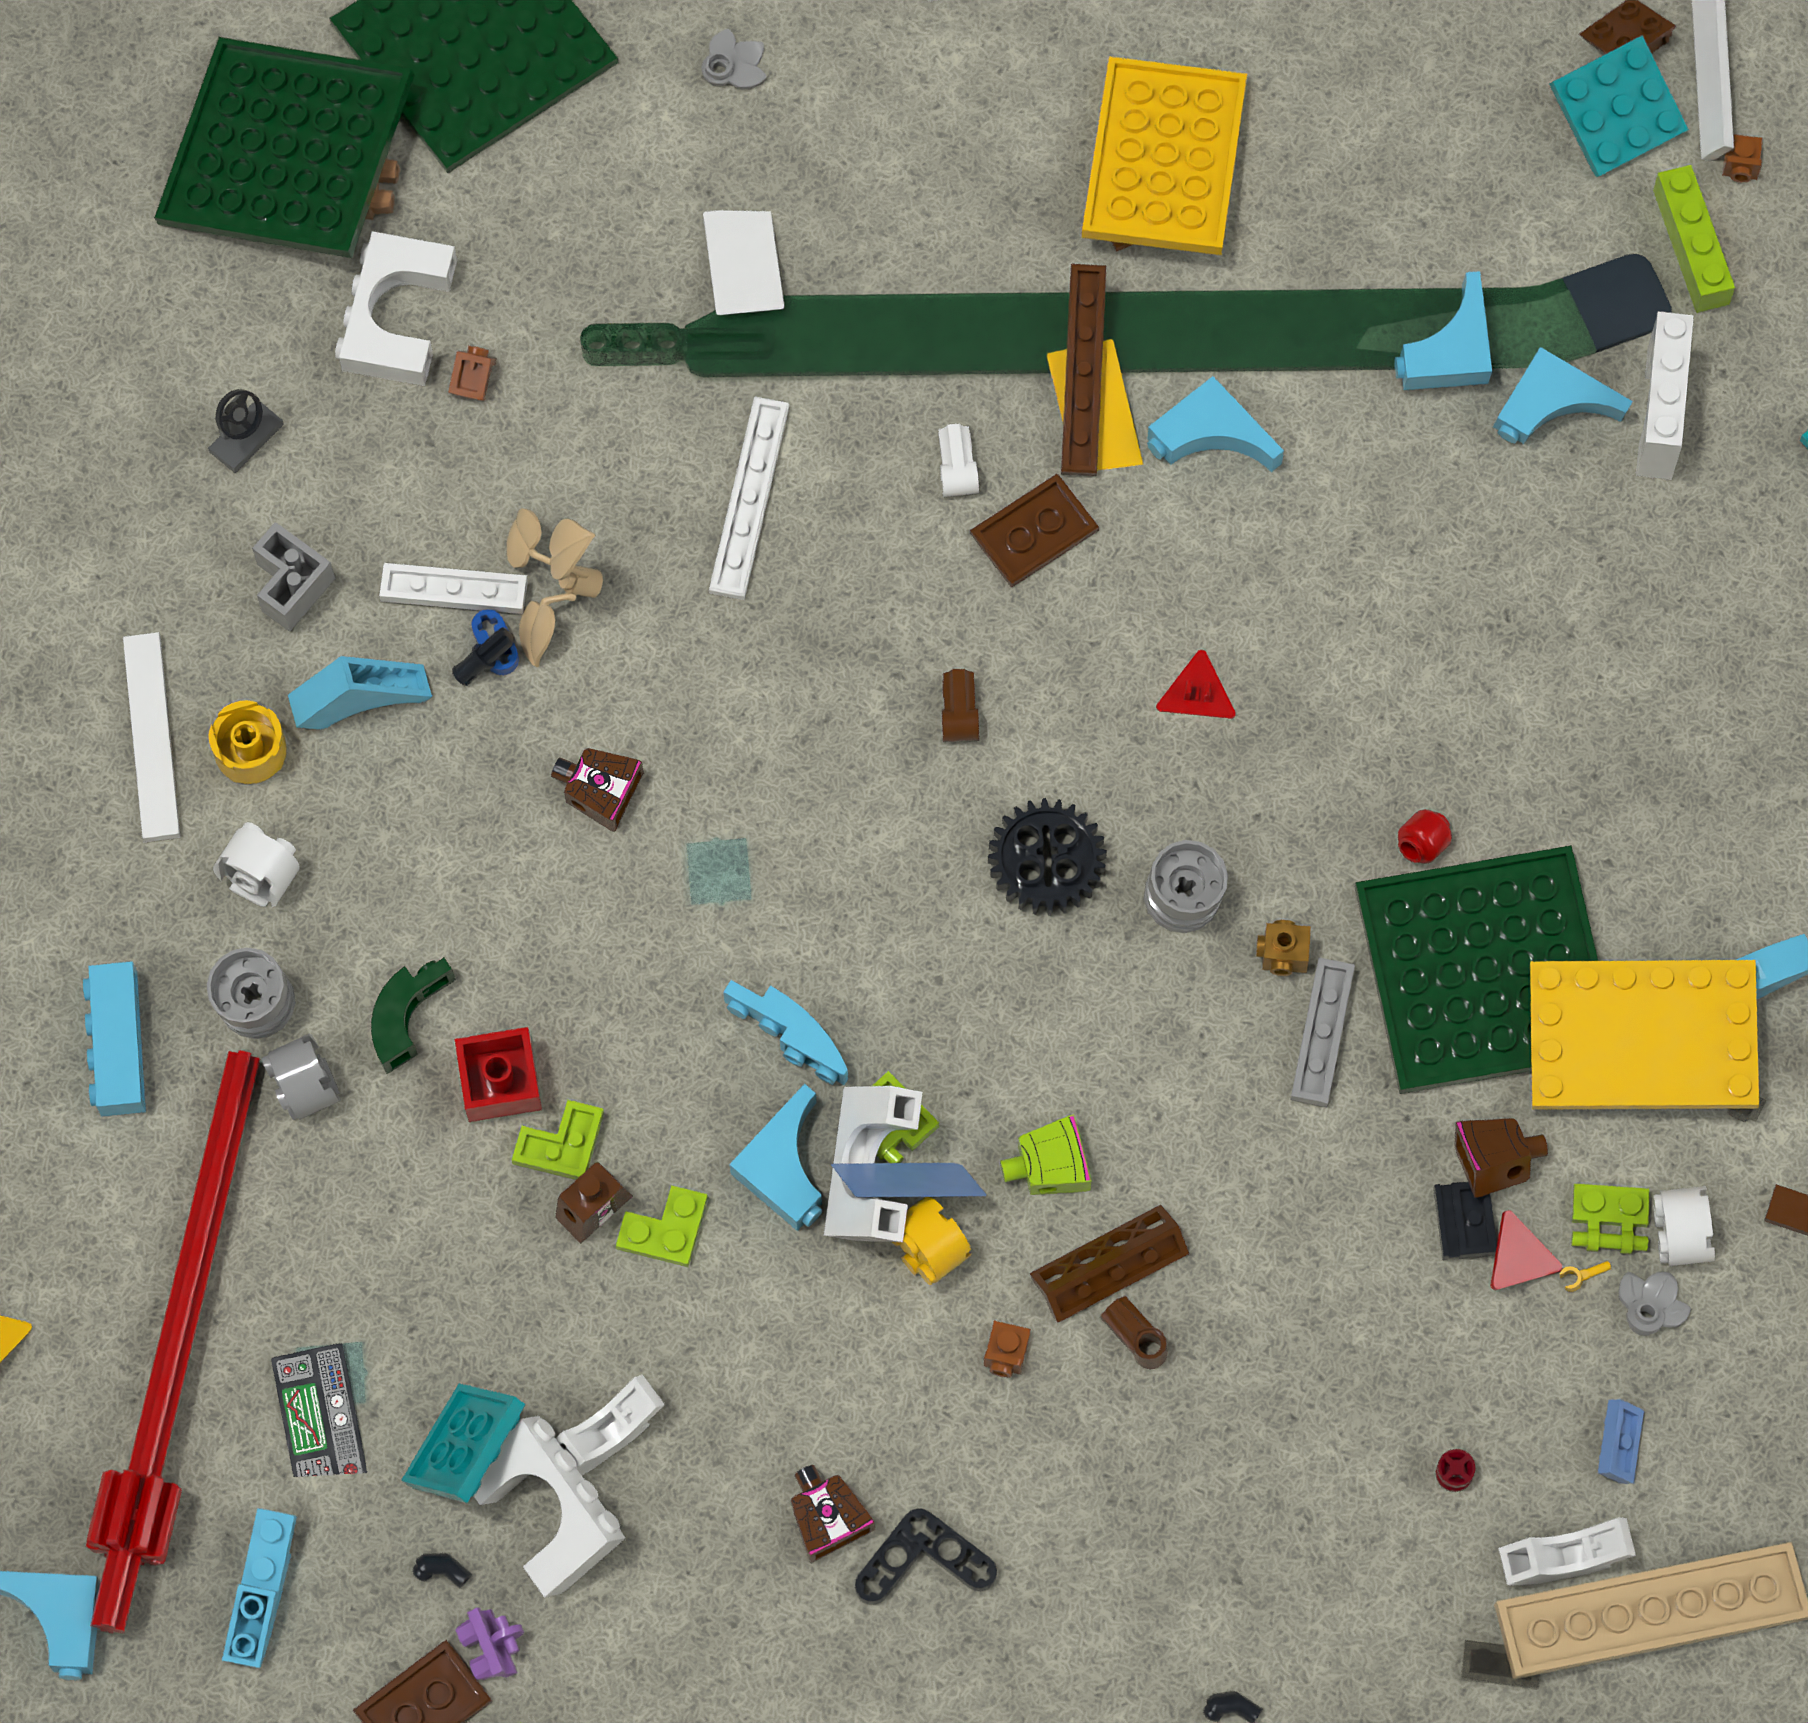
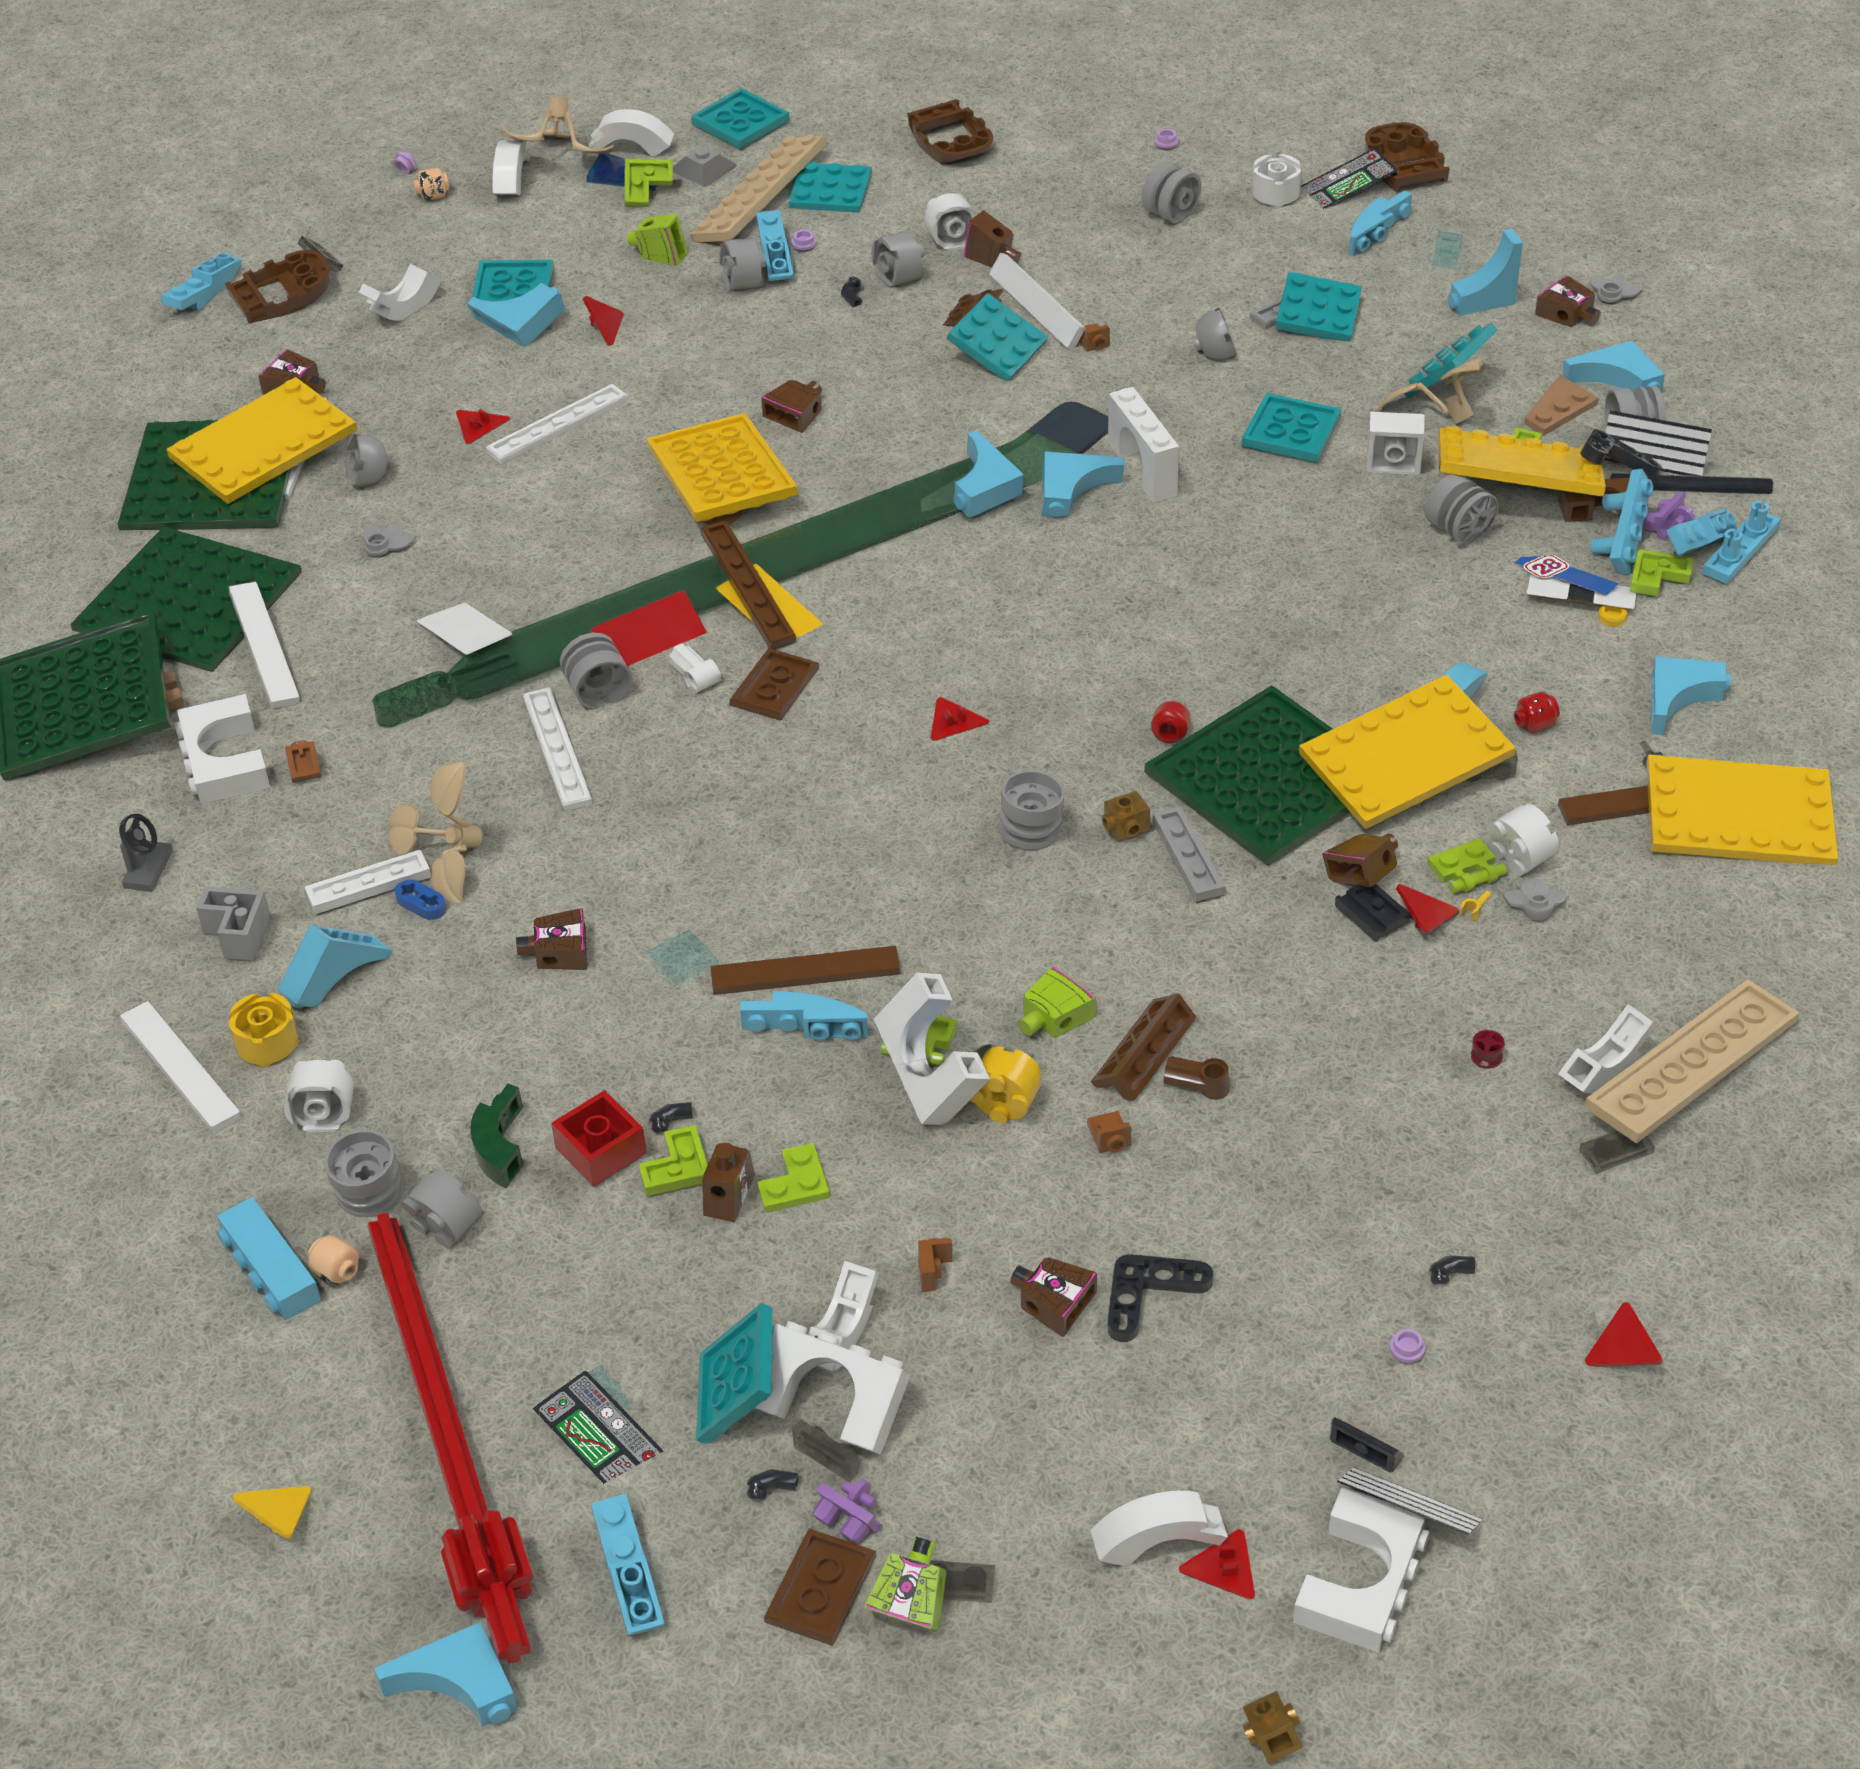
camera: 30 degrees left, 25 degrees down
(174, 1078) = (333, 1259): none -> light nougat head
(483, 656) = (418, 903): black axle -> none
(503, 1551) = (824, 1450): none -> clear smoke plate
(515, 170) = (264, 645): none -> white tile
(586, 1073) = (670, 1112): none -> black arm
(727, 1413) = (930, 1256): none -> dark orange bracket
(772, 1165) = (857, 1103): medium azure arch -> none
(830, 962) = (804, 970): none -> reddish brown tile
(841, 412) = (595, 670): none -> light grey wheel
(939, 377) = (653, 628): none -> red sticker
(959, 714) = (795, 794): reddish brown piece -> none
(1080, 855) = (918, 843): black gear -> none
(1209, 421) = (859, 577): medium azure arch -> none
(1313, 89) = (793, 404): none -> reddish brown torso
(1620, 1441) = (1581, 975): medium blue plate -> none
(1693, 238) = (1089, 372): lime brick -> none

